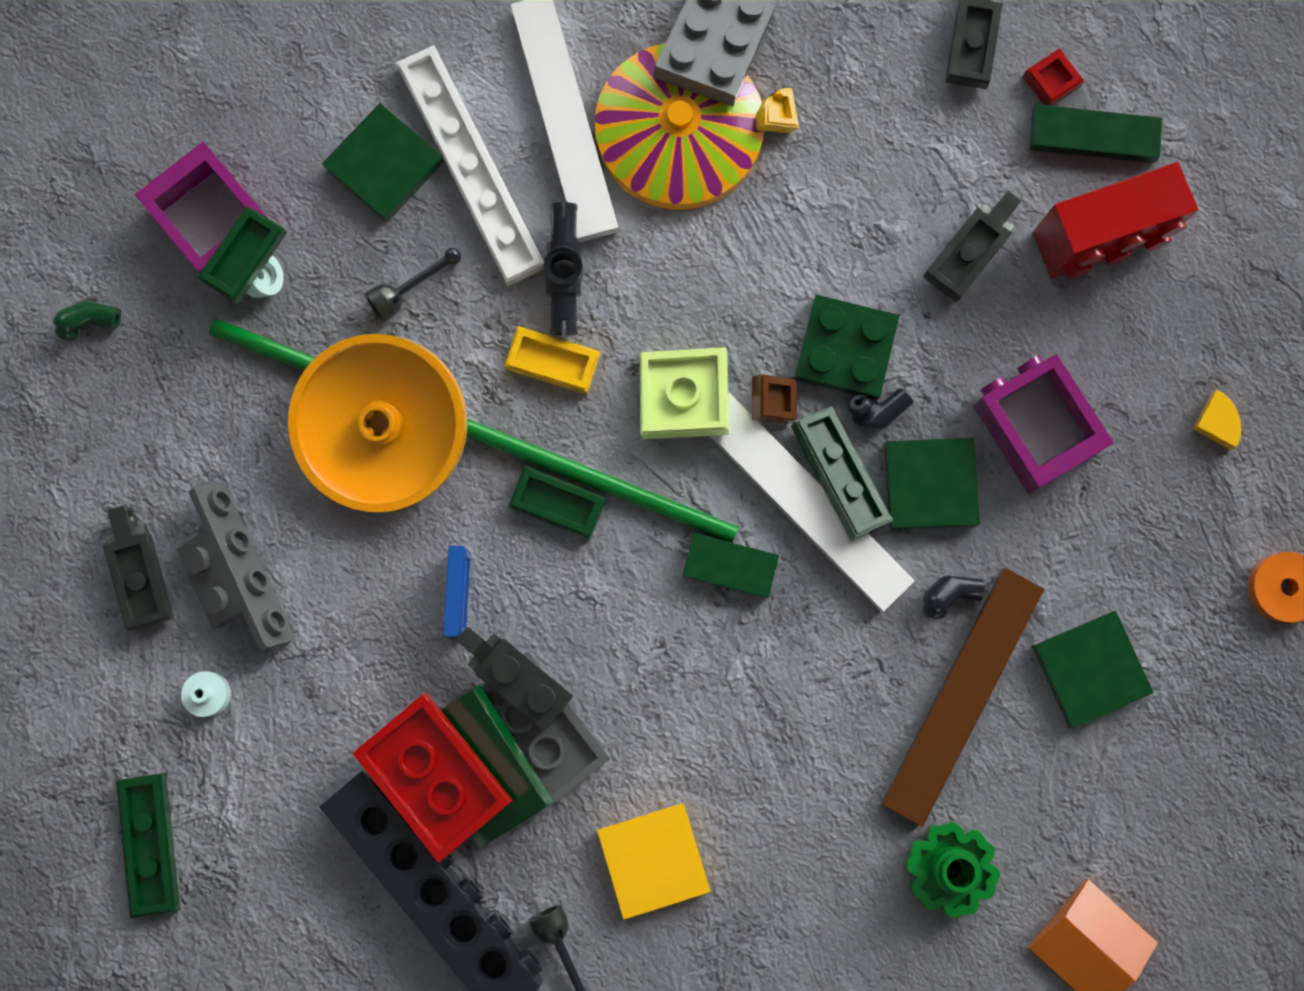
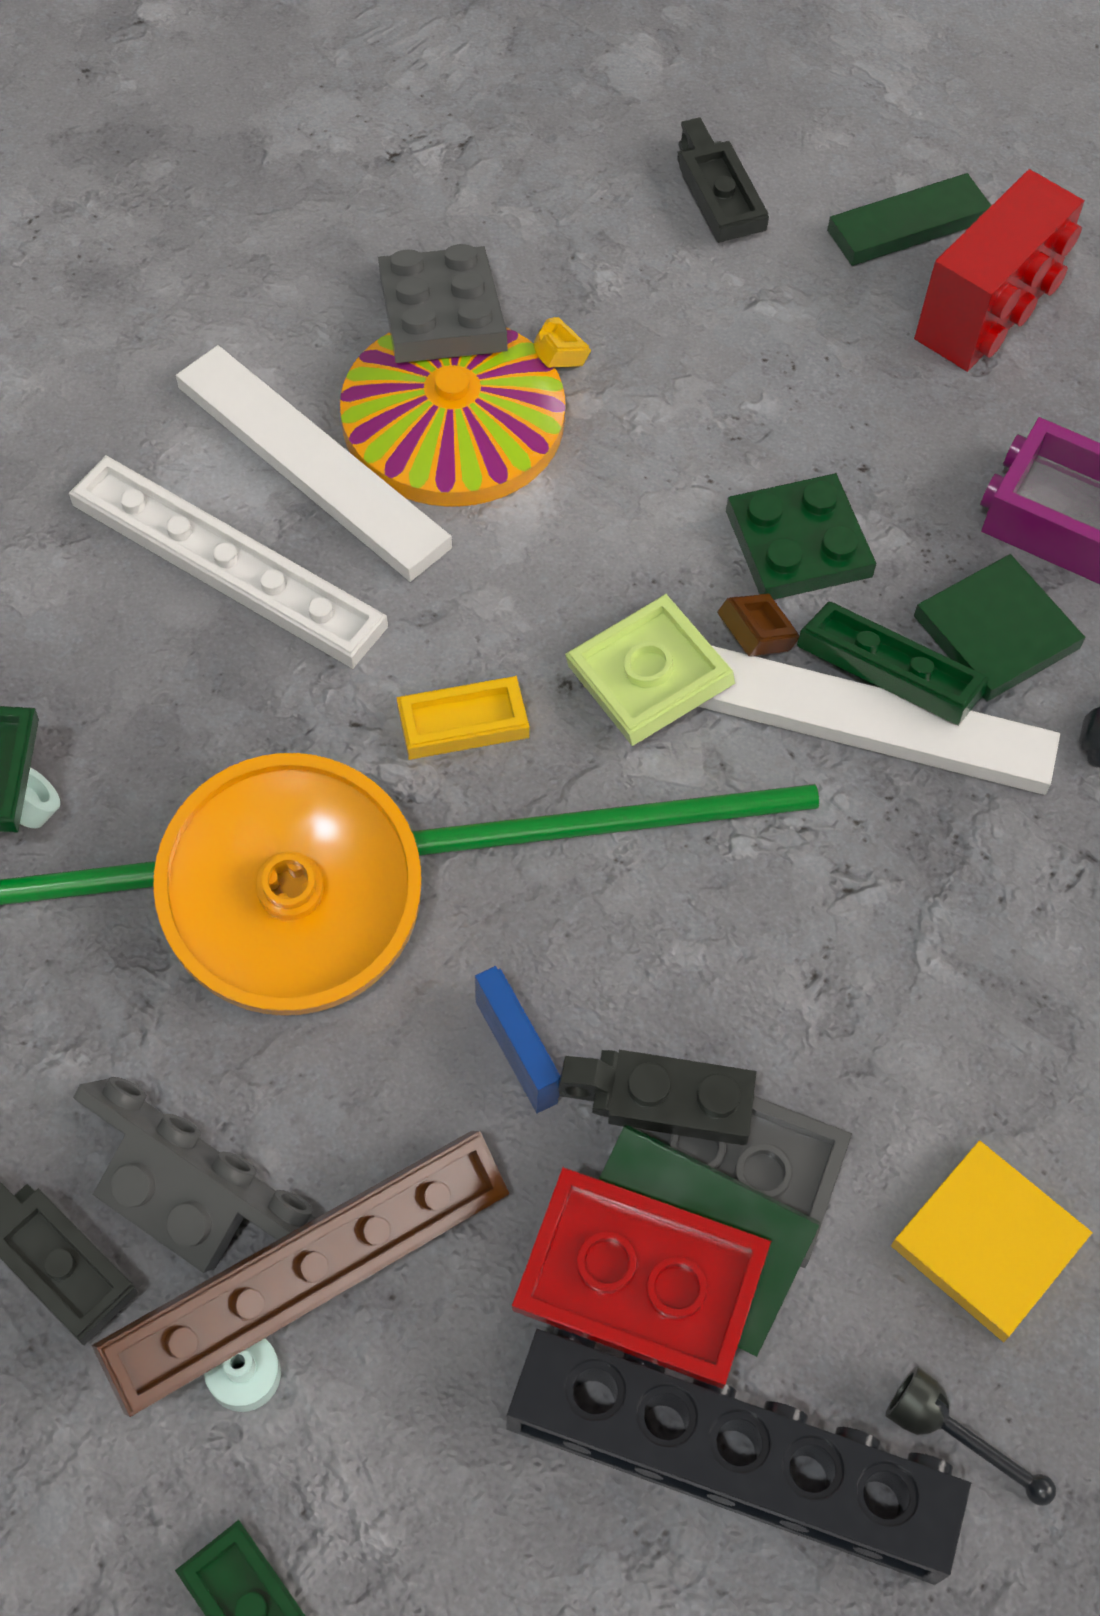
camera: 30 degrees left, 20 degrees down
(258, 664) = (298, 1273): none -> tile
(383, 162) = (113, 605): dark green tile -> none
(387, 299) = (209, 747): hinge -> none
(557, 502) = (574, 872): dark green tile -> none
(563, 247) = (425, 628): black pin -> none
(730, 565) = (835, 832): dark green tile -> none
(878, 414) = (886, 585): black arm -> none
(972, 248) = (866, 374): pearl dark grey hinge -> none
(1053, 78) = (827, 190): red tile -> none

